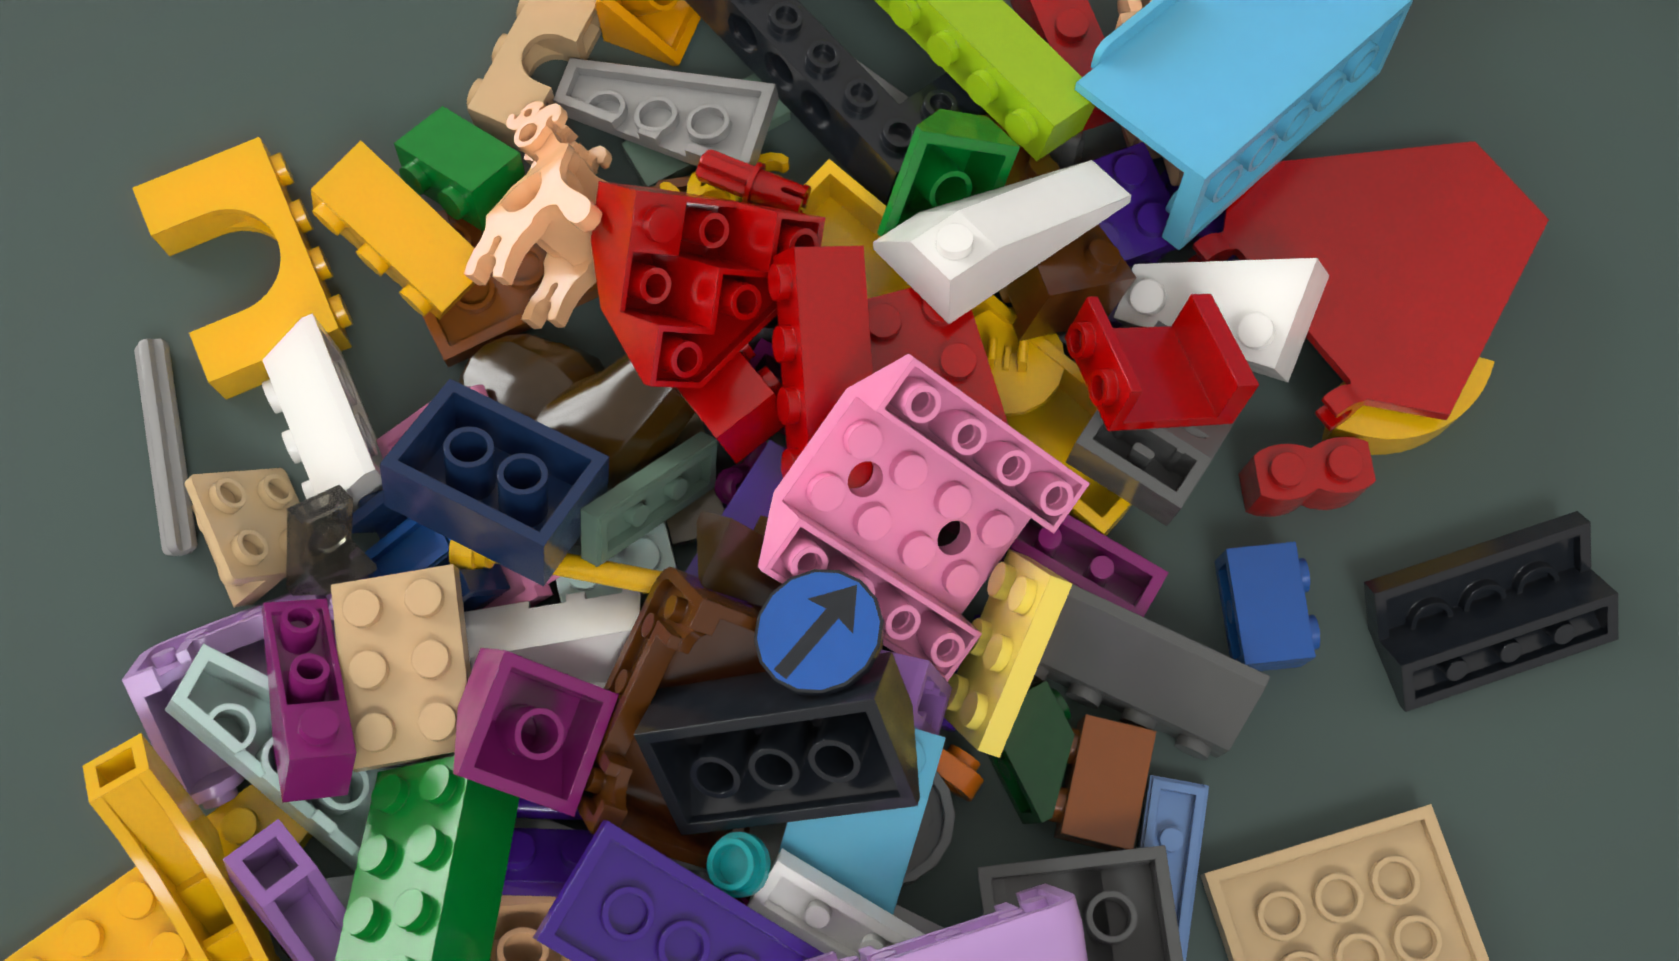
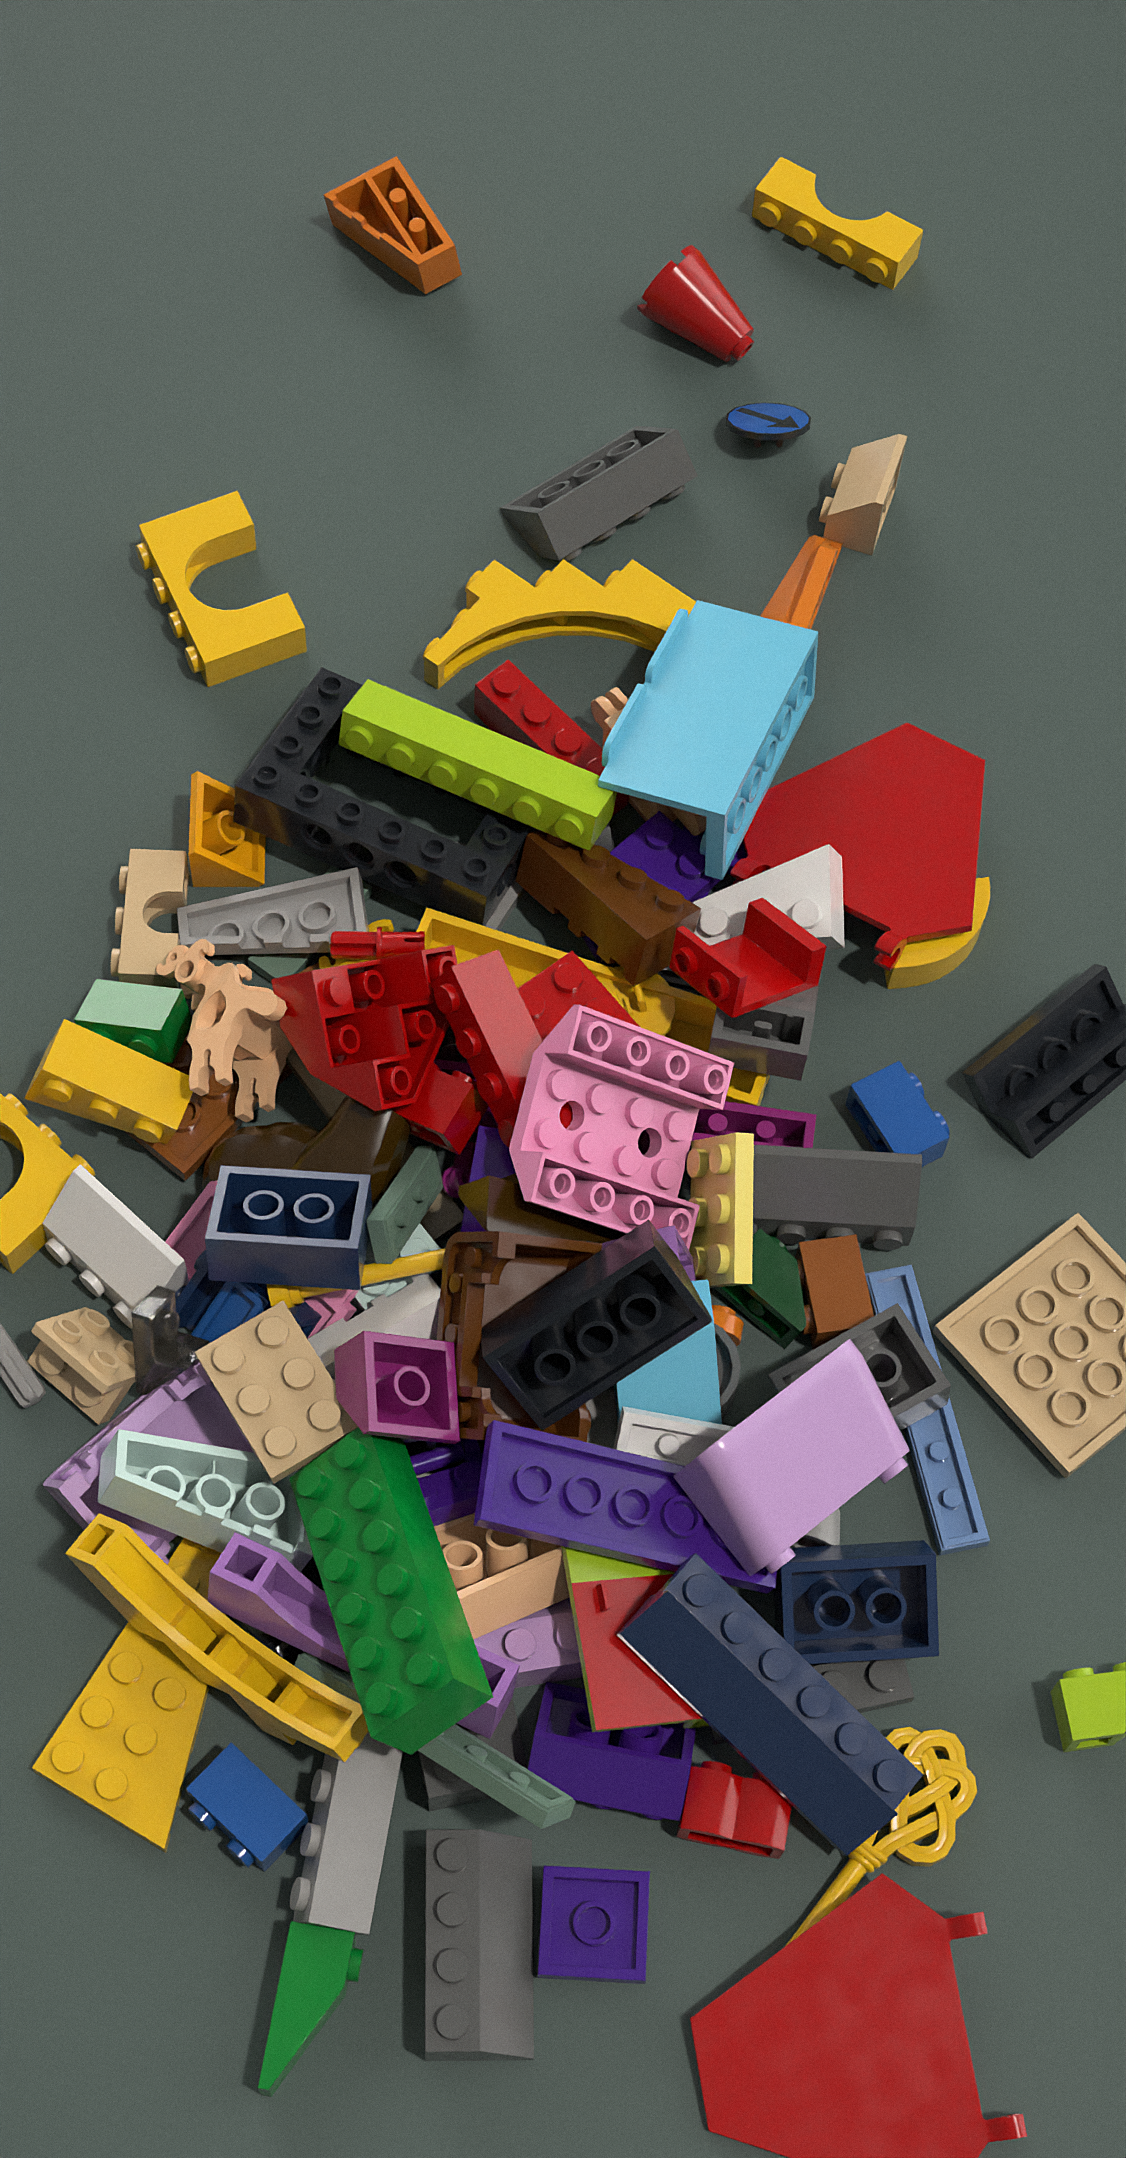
camera: 25 degrees left, 10 degrees down
(307, 701) = (219, 1444): magenta slope -> none
(739, 864) = (597, 1425): teal plate -> none
(819, 632) = (592, 1224): blue piece -> none
(948, 161) = (534, 888): green slope -> none
(988, 240) = (584, 916): white wedge -> none
(1316, 478) = (887, 1013): red brick -> none

